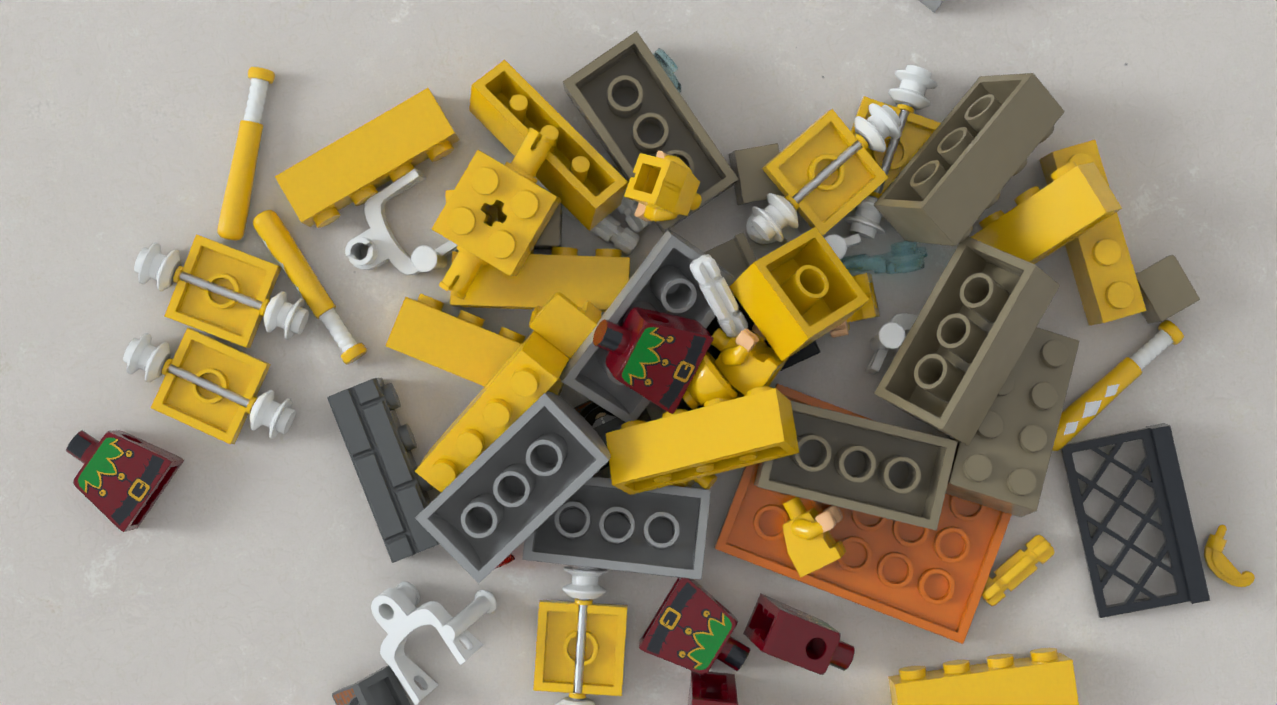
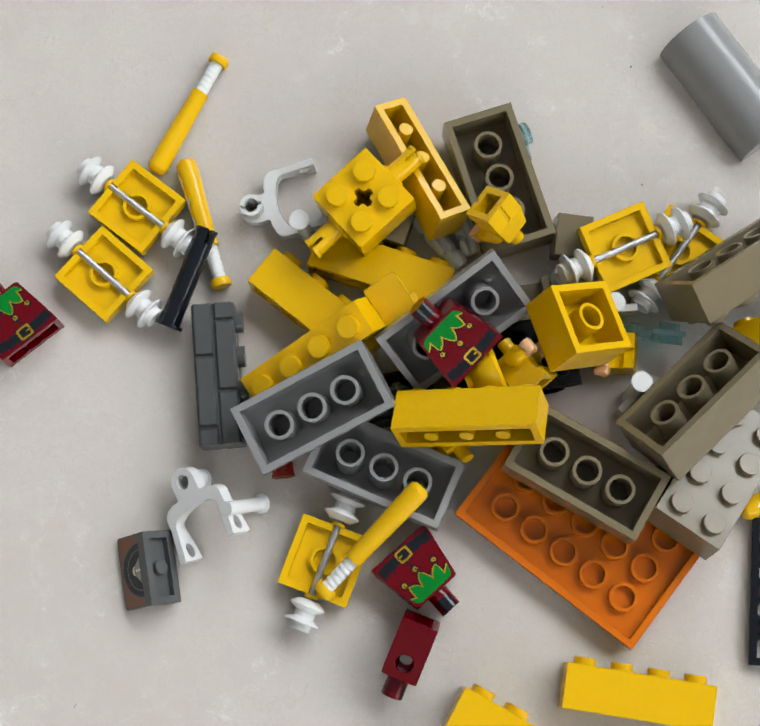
camera: 15 degrees right, 10 degrees down
(312, 363) = (187, 278): none -> black pin
(367, 159) = (278, 142): yellow brick -> none
(638, 598) = (387, 523): none -> yellow piece
(718, 295) = (515, 308): white axle -> none
(797, 637) = (491, 592): dark red torso -> none
(809, 536) = (533, 520): yellow piece -> none
(1017, 569) = (691, 605): yellow axle -> none

